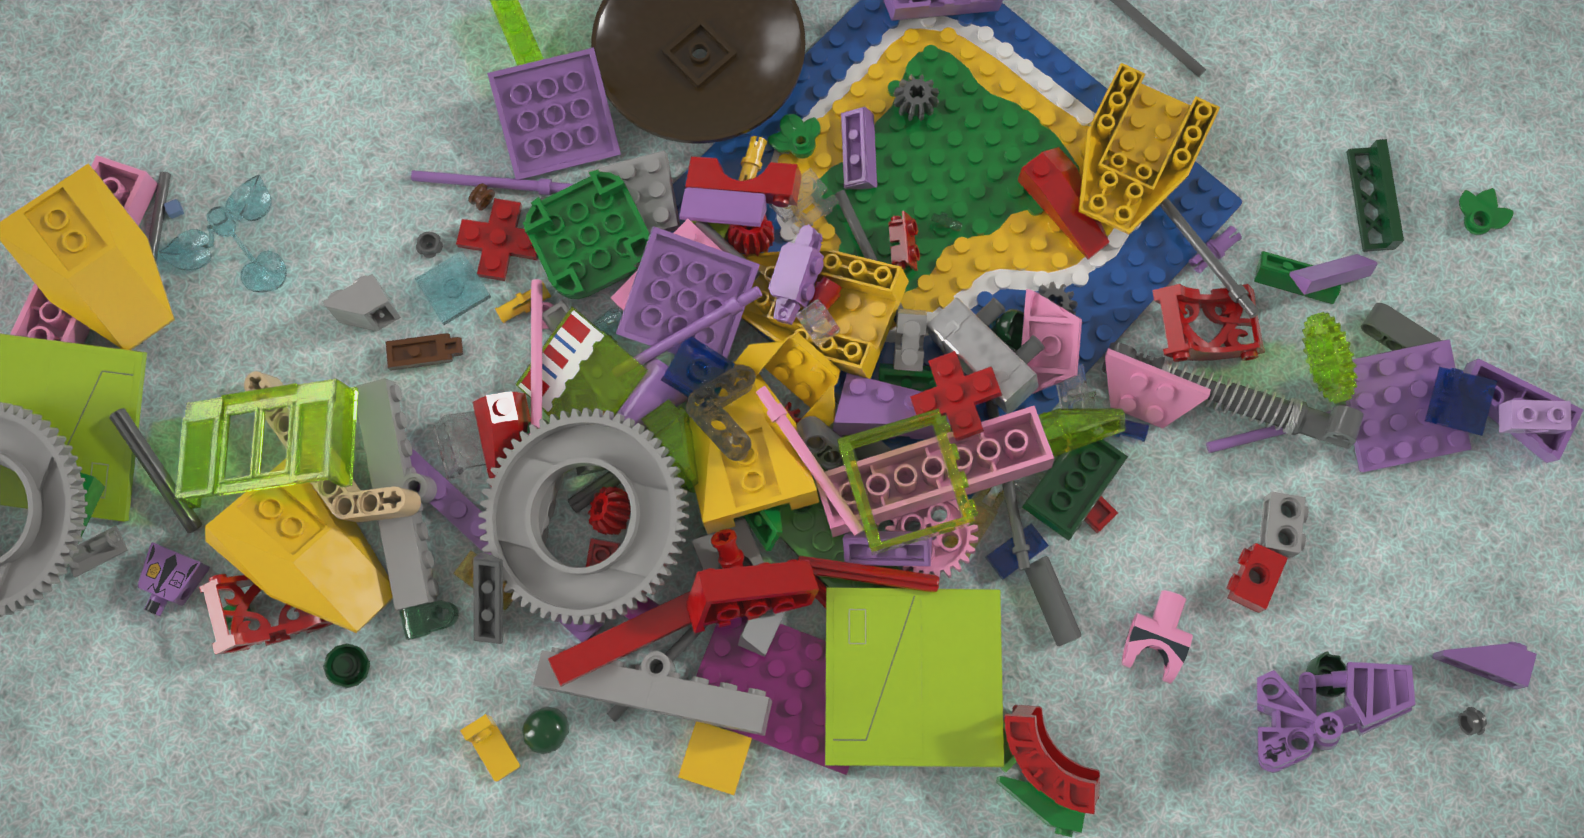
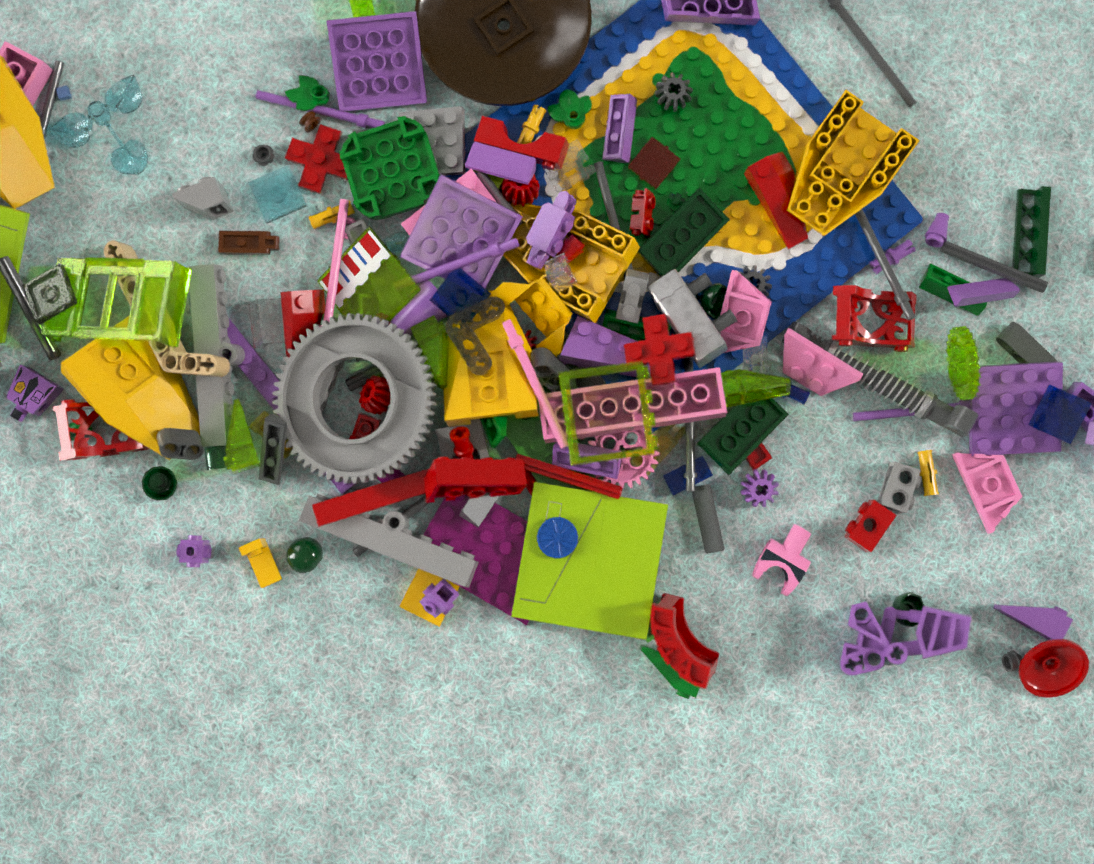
camera: 10 degrees right, 10 degrees up
(181, 446) = (50, 293): none -> clear smoke tile
(368, 608) = (180, 443): none -> dark grey beam
(412, 746) = (201, 547): none -> medium lavender brick
(445, 597) = (240, 446): none -> clear neon green slope
(476, 165) = (308, 94): none -> green plate
(728, 755) = (439, 598): none -> medium lavender brick
(867, 652) = (557, 537): none -> blue wheel
(907, 183) = (654, 162): none -> clear red piece
(958, 259) = (683, 234): none -> dark green tile
(1120, 550) = (766, 482): none -> medium lavender gear
(1263, 211) = (937, 232): none -> medium lavender cone
(1314, 501) = (928, 472): none -> yellow pin
(1339, 242) = (994, 266): none -> dark grey axle
(1393, 505) = (989, 486): none -> bright pink wing
(1527, 719) = (1053, 668): none -> red dish

